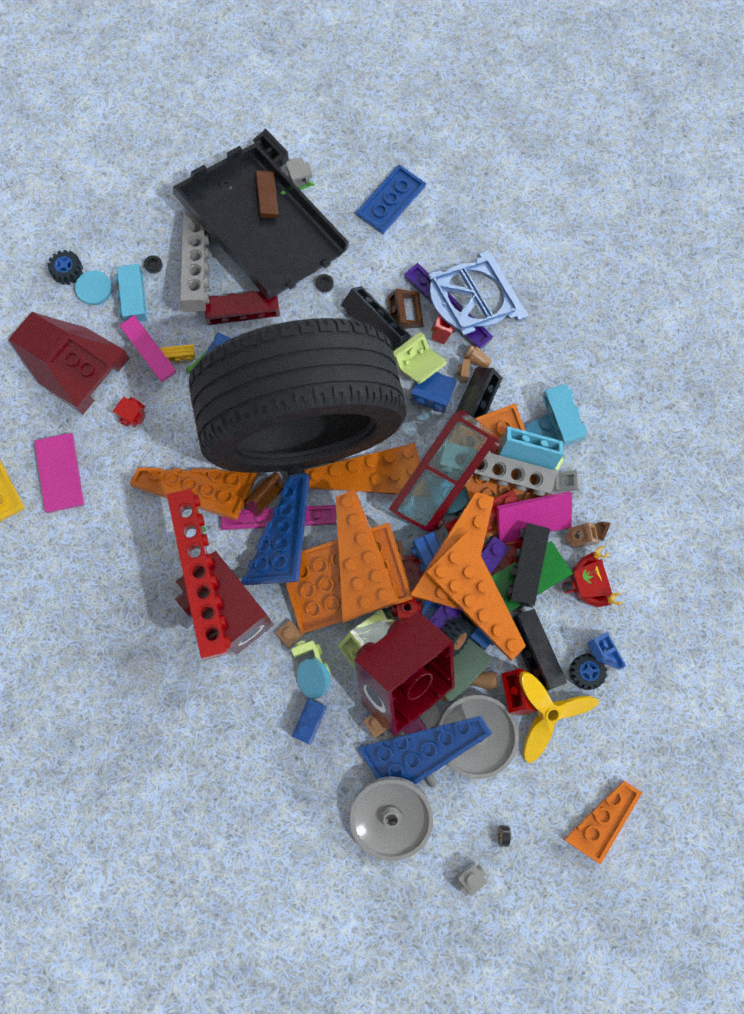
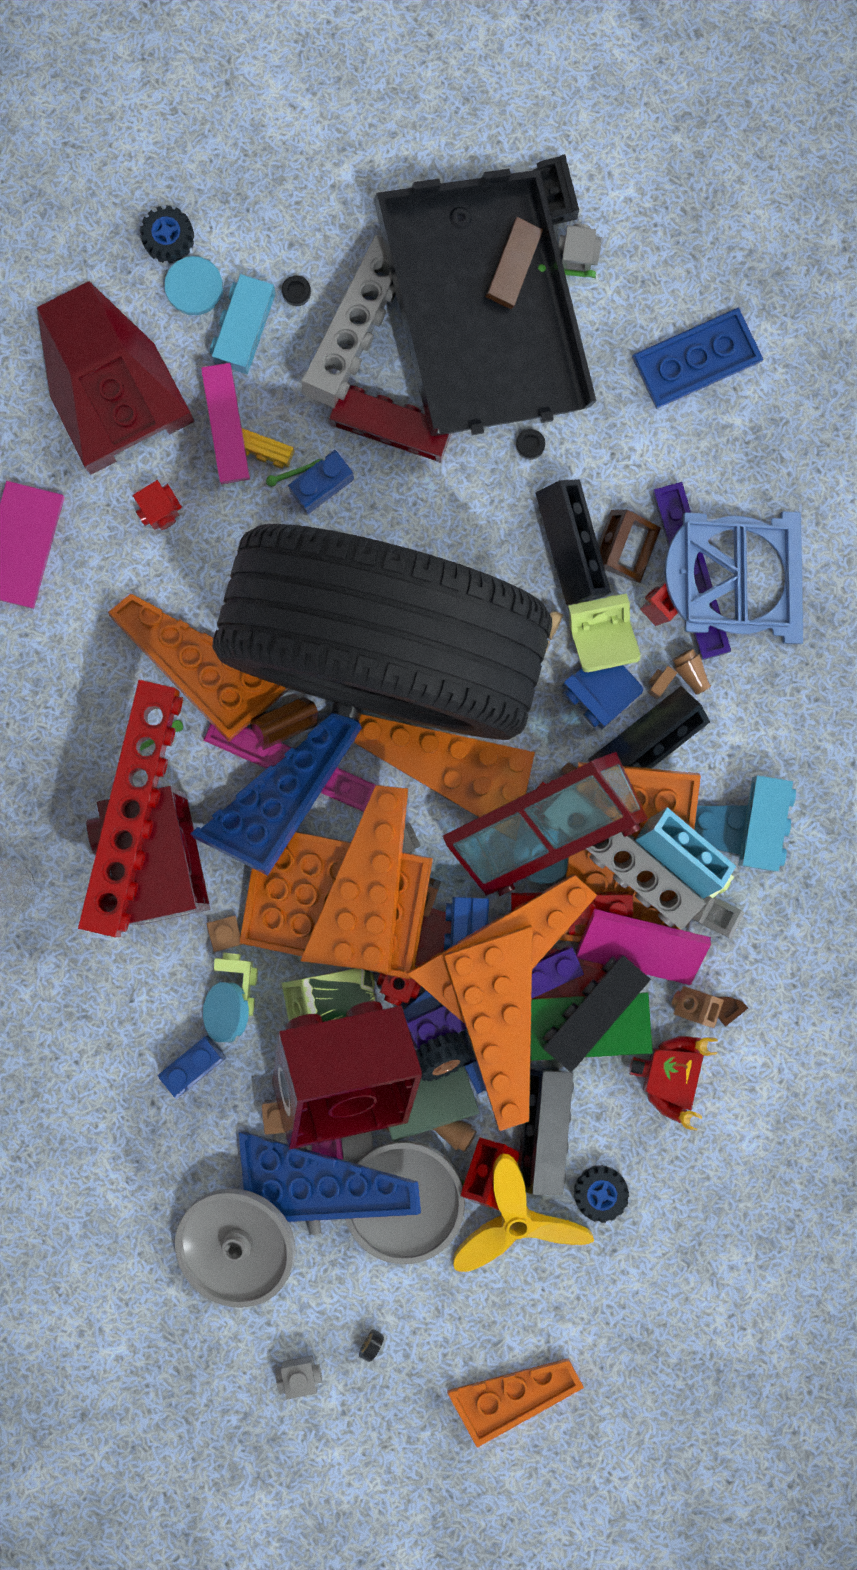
camera: 35 degrees right, 10 degrees up
(606, 652) = (639, 1180): blue wing -> none

